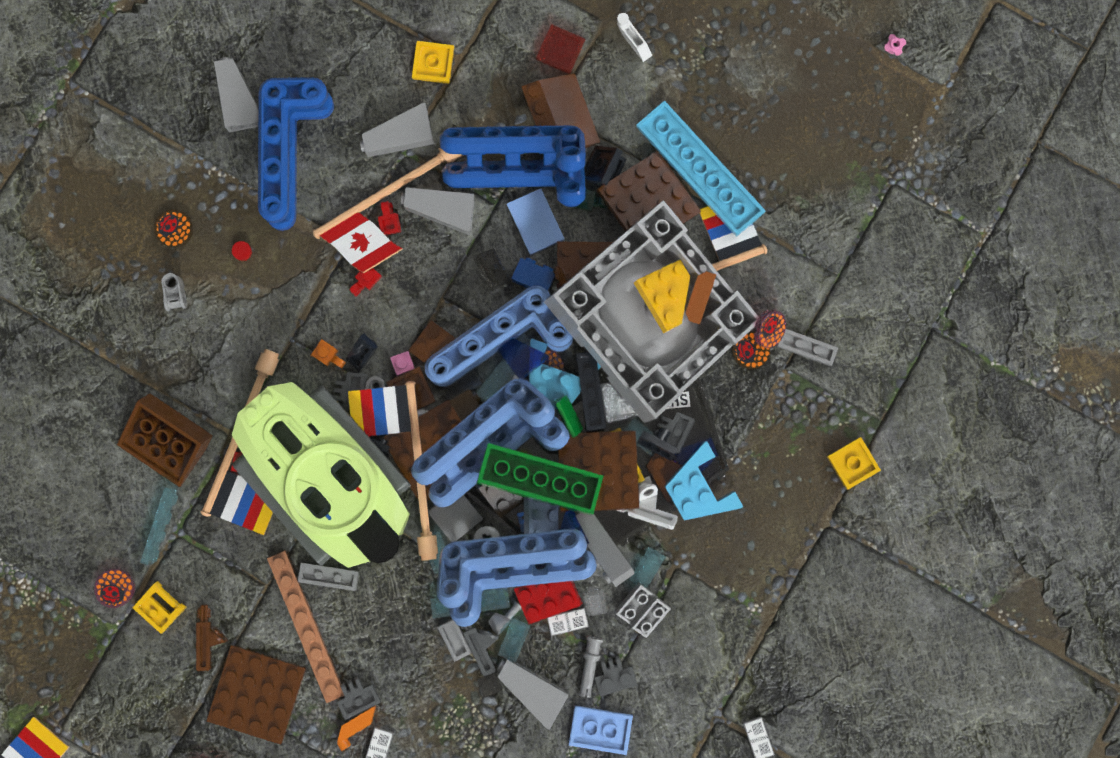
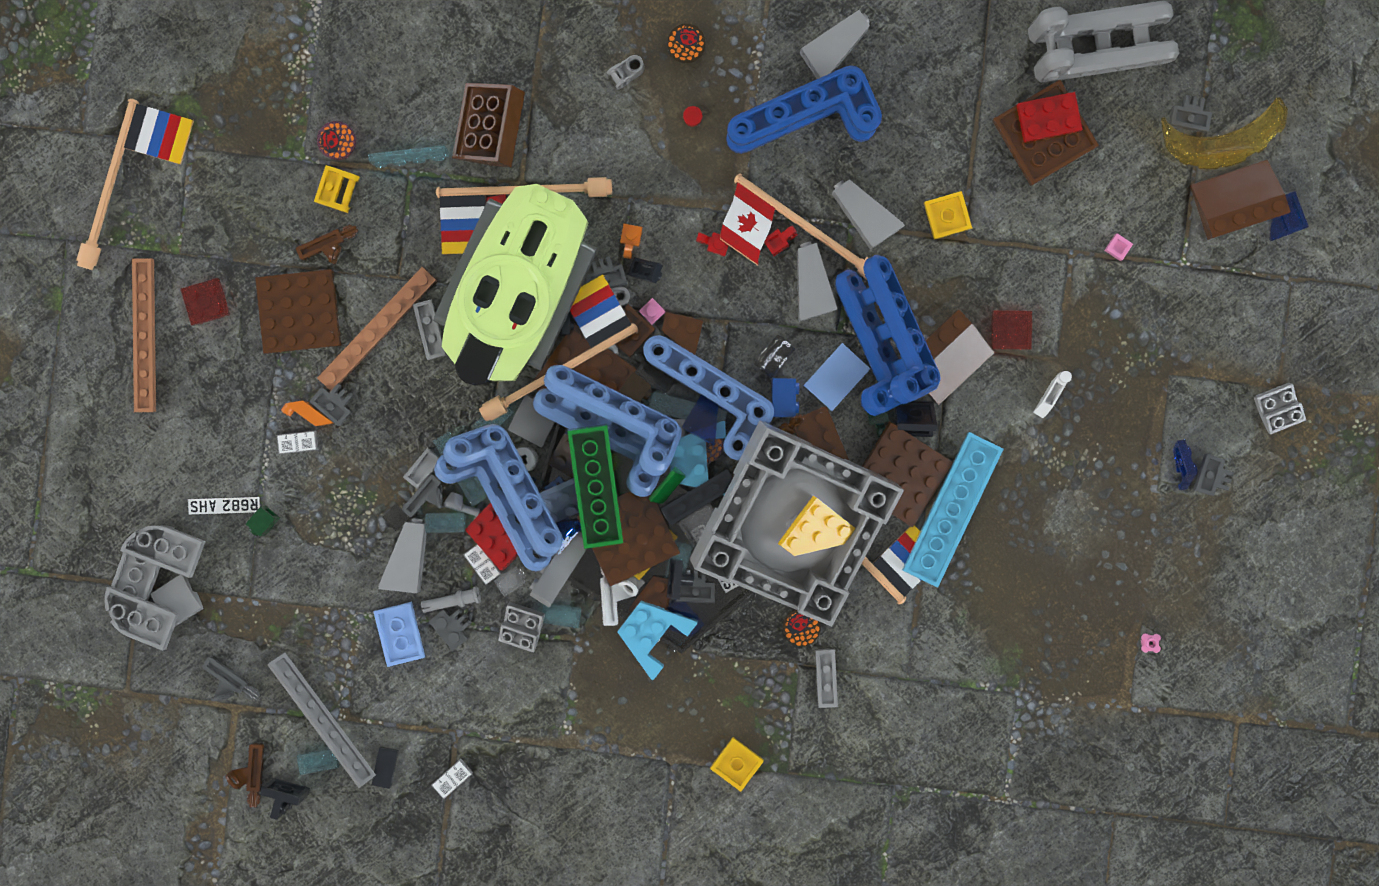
camera: 70 degrees right, 5 degrees up
(700, 296) = (828, 561): dark orange piece -> none
(770, 328) = (827, 637): tile -> none

